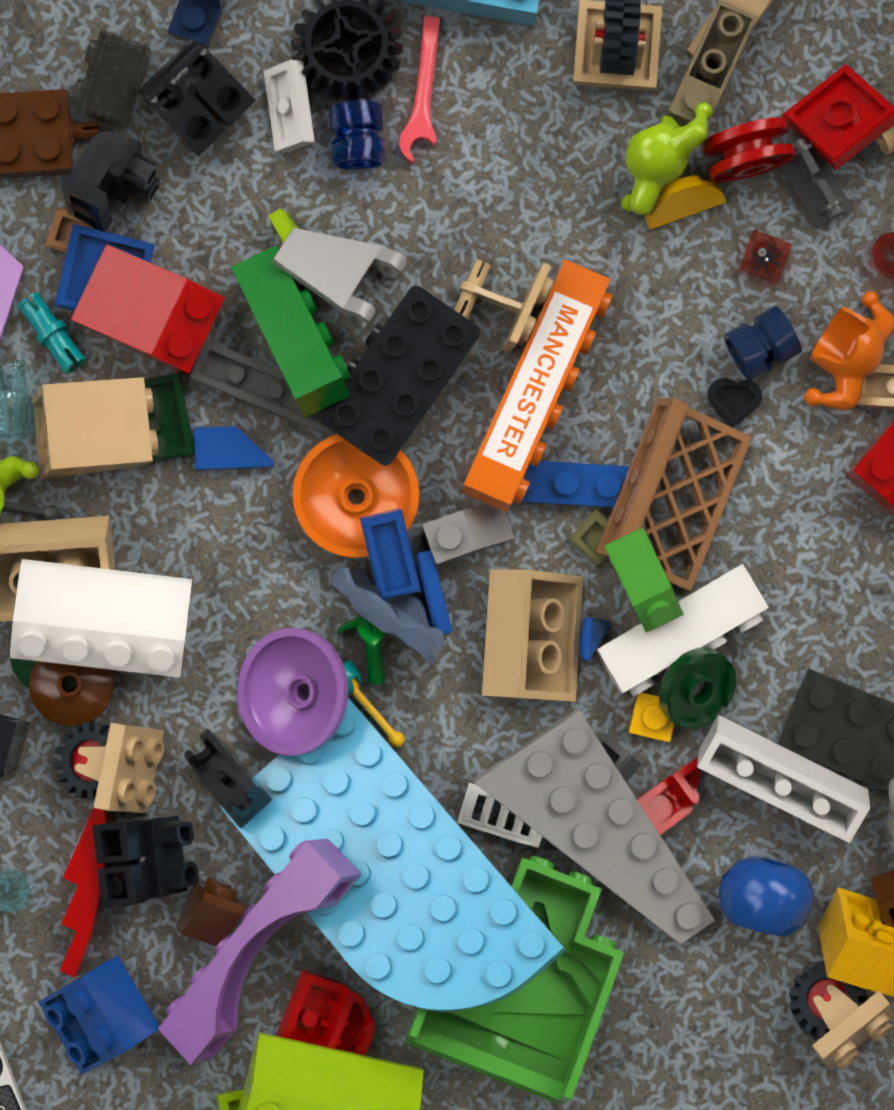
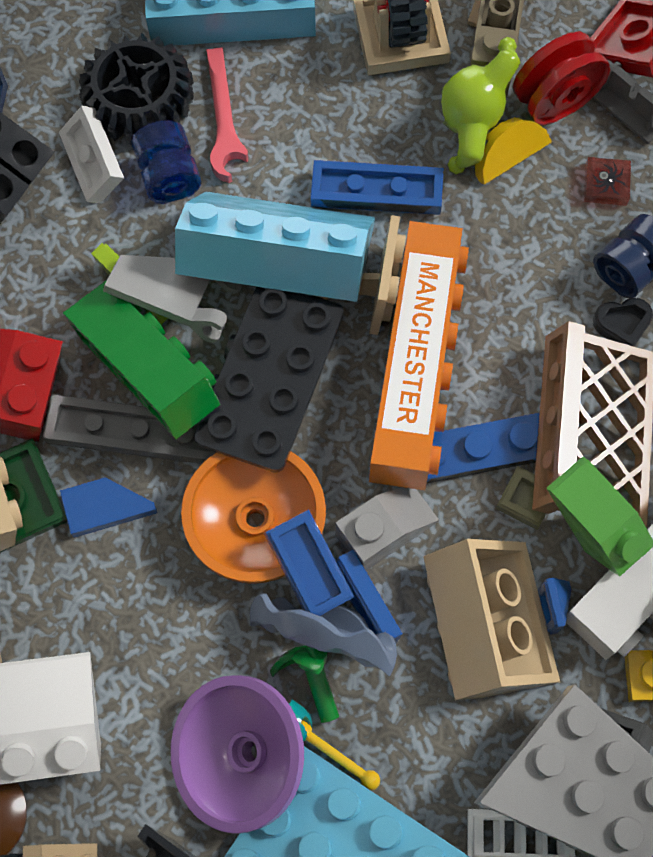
camera: 10 degrees left, 15 degrees down
(437, 248) = (273, 245): none -> medium azure slope
(547, 209) = (377, 187): none -> blue plate

